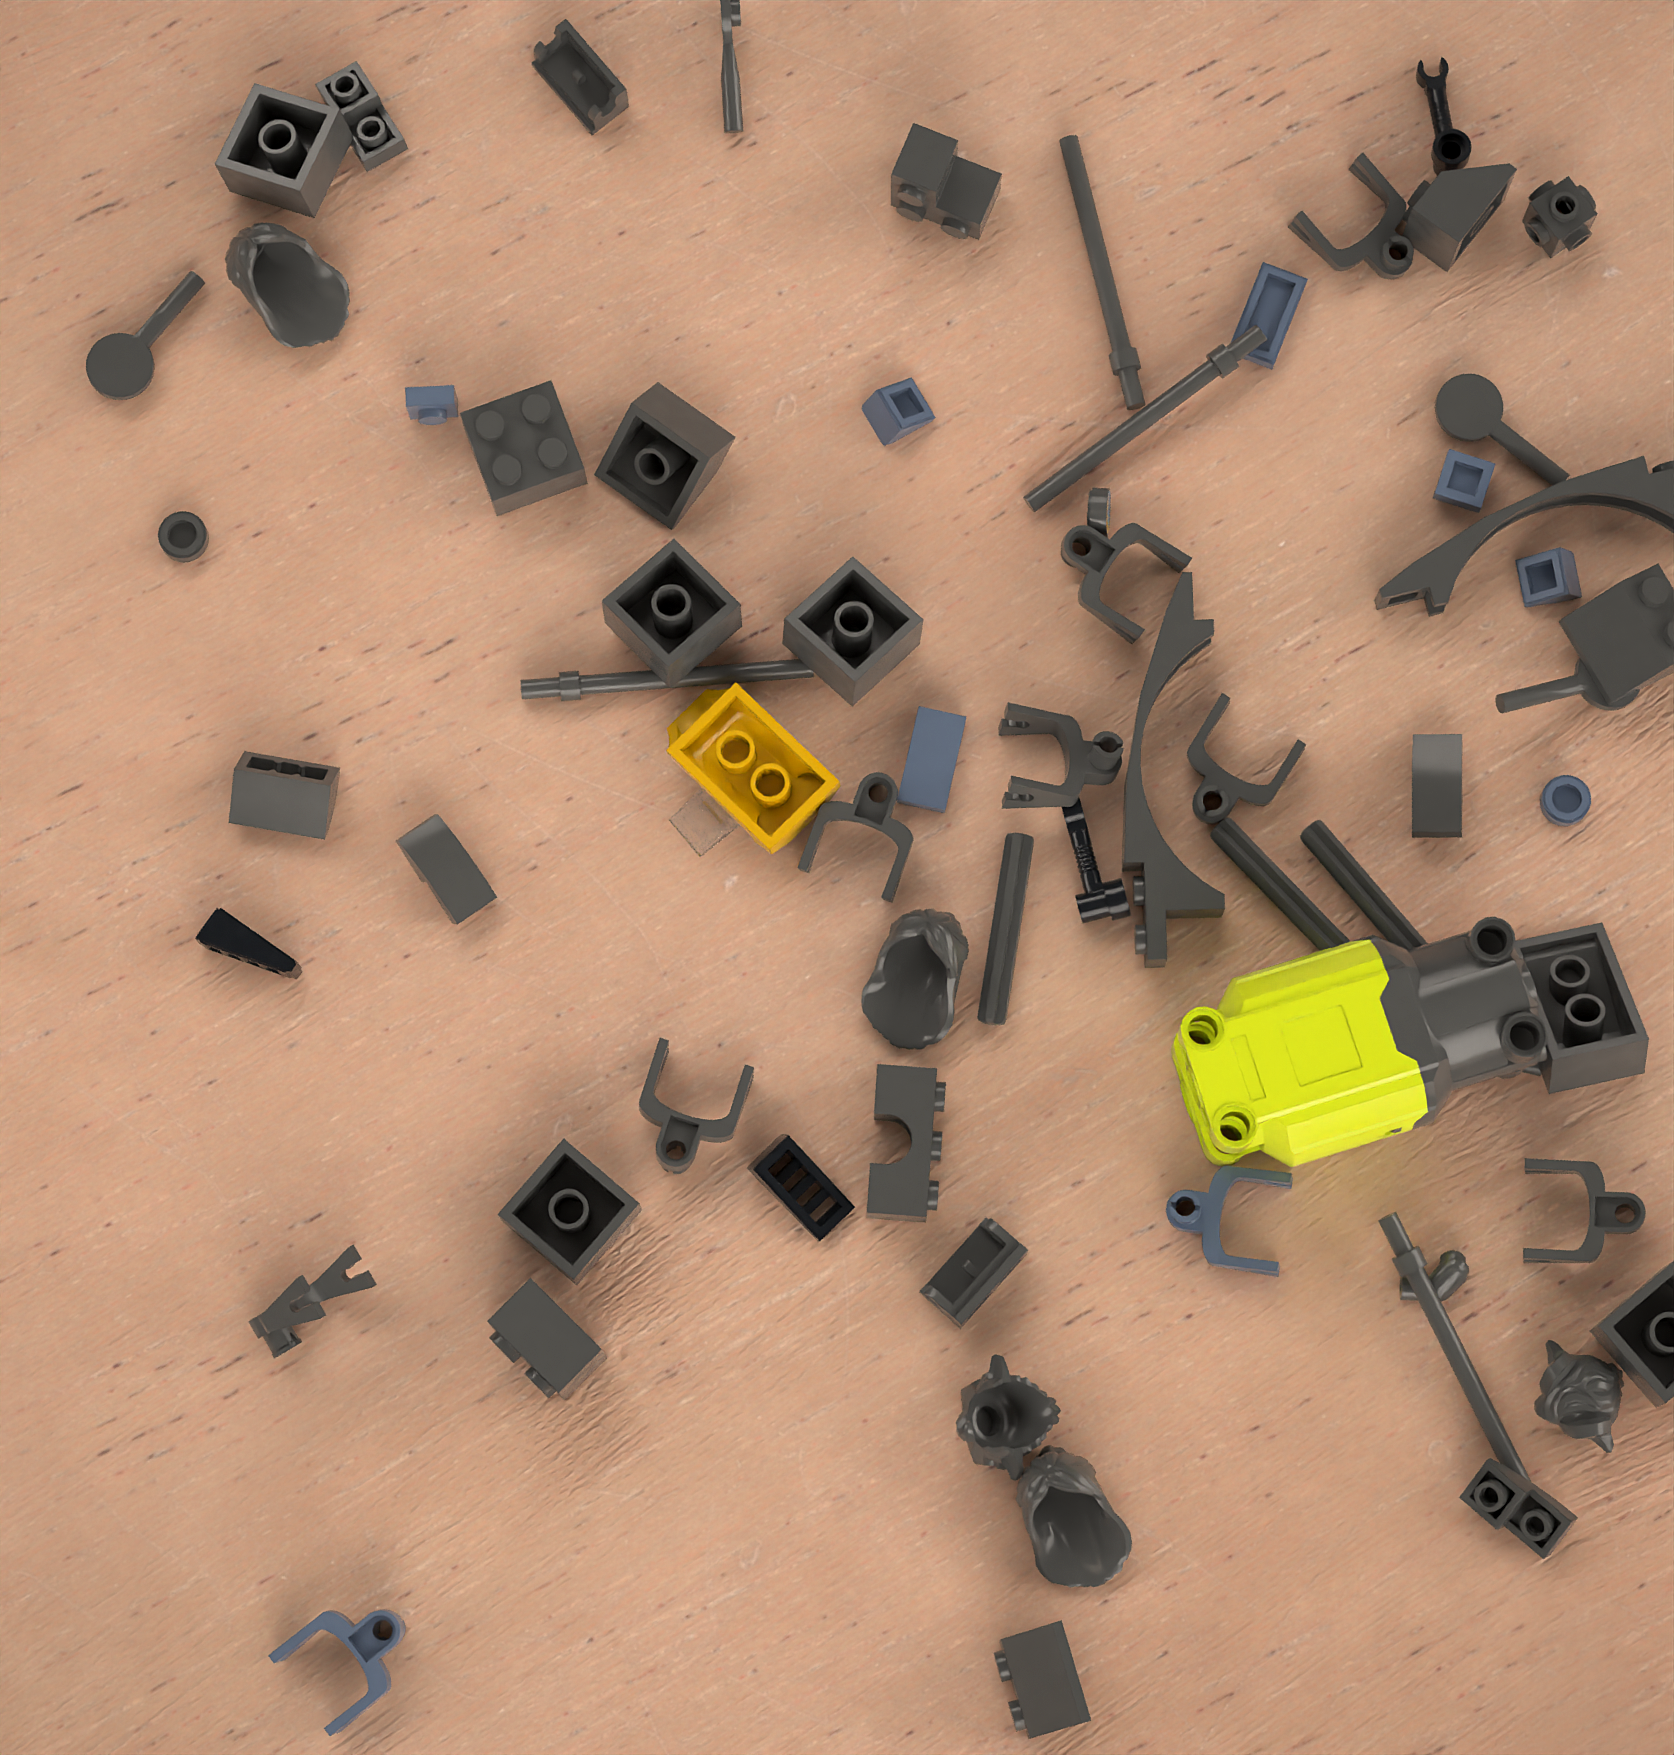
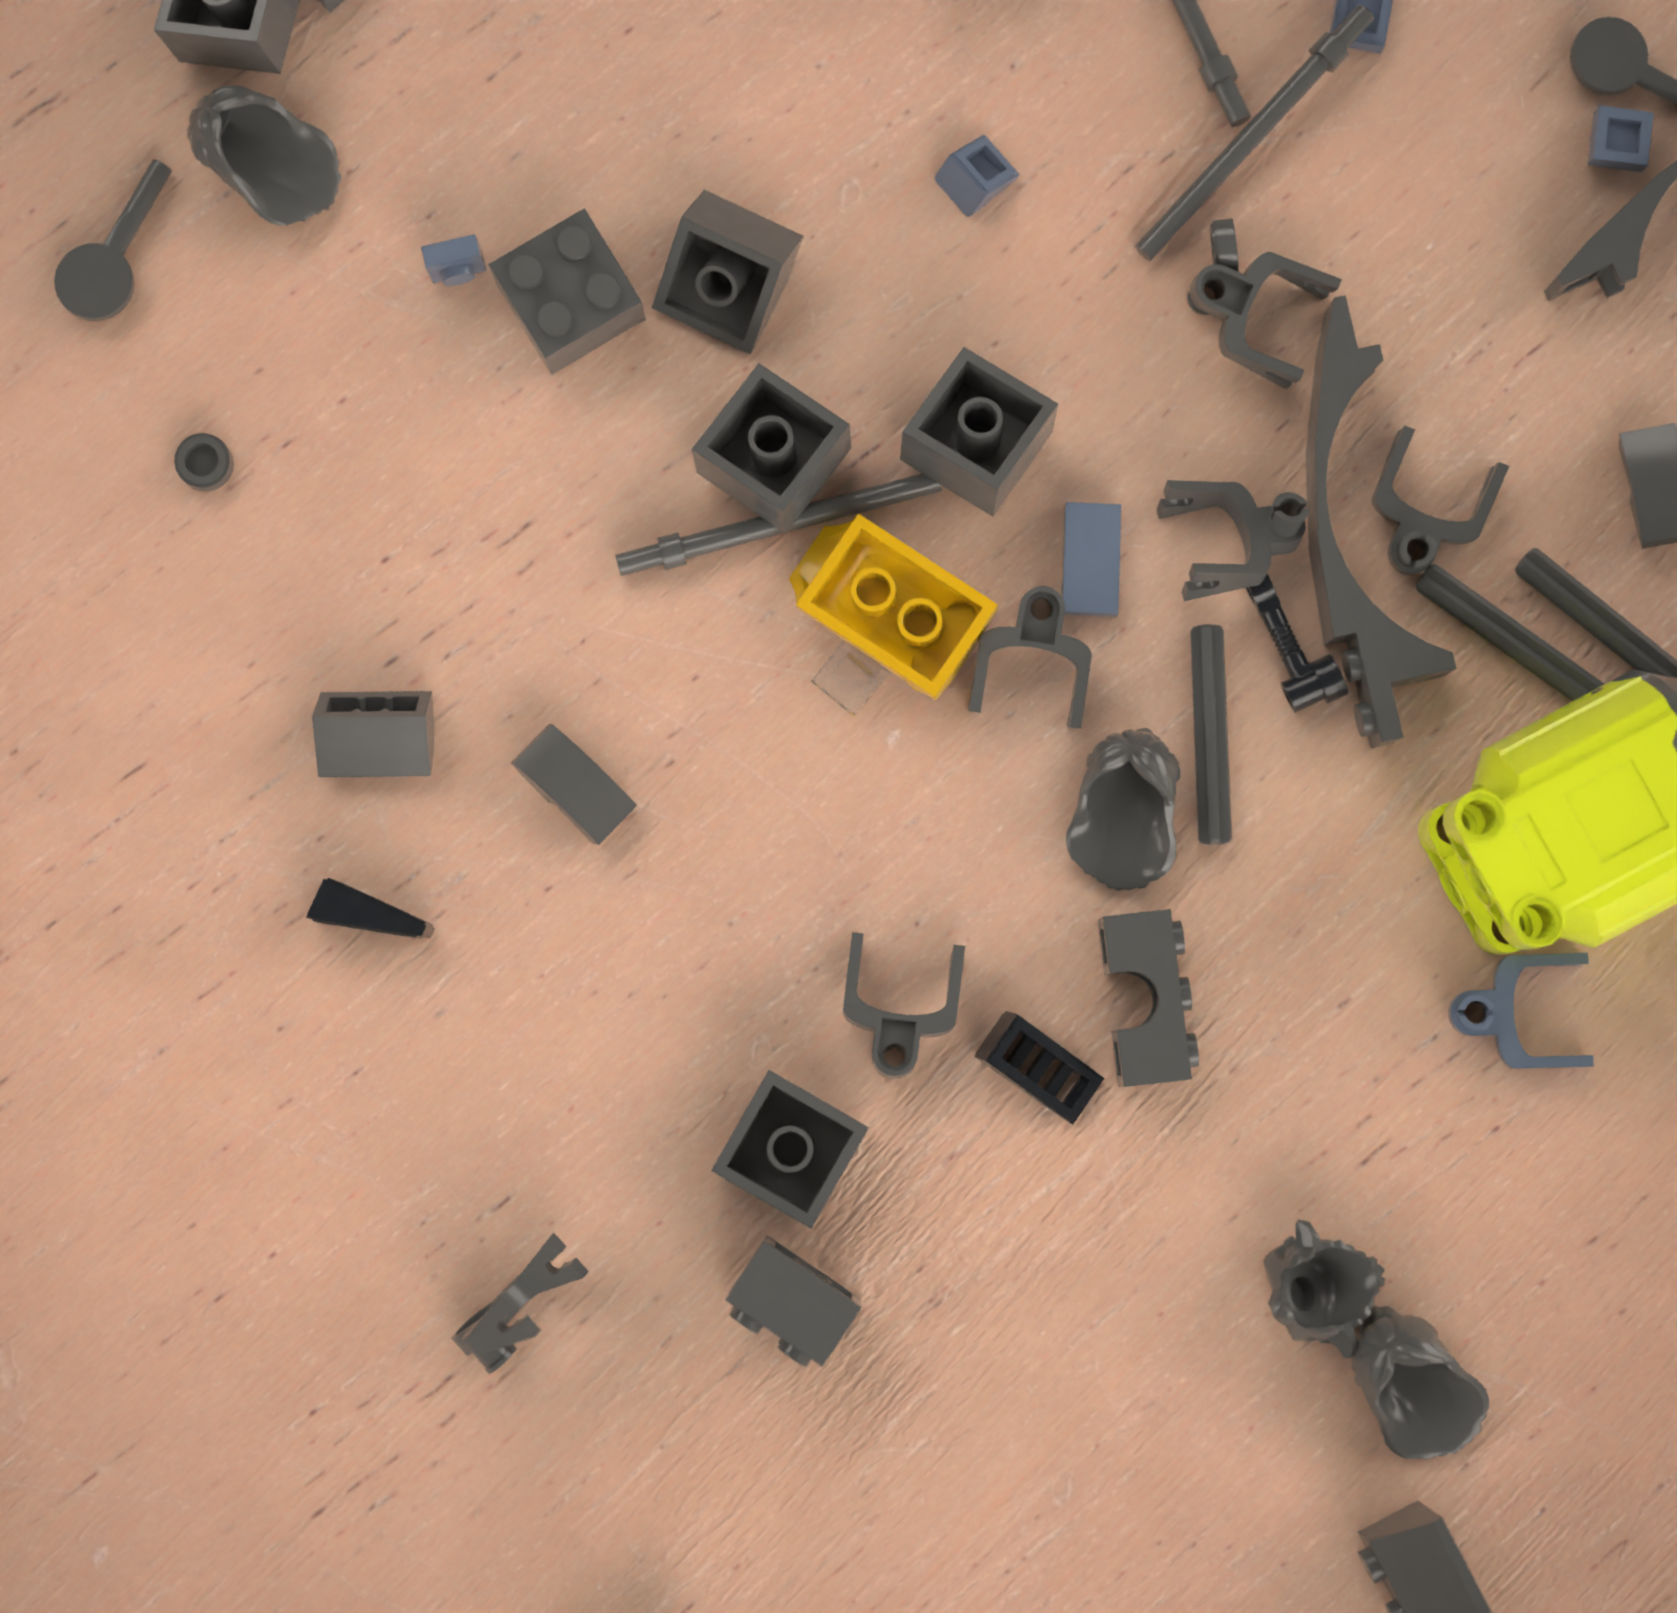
camera: 15 degrees left, 5 degrees up
(974, 1272) = (1252, 1127): dark grey hinge -> none

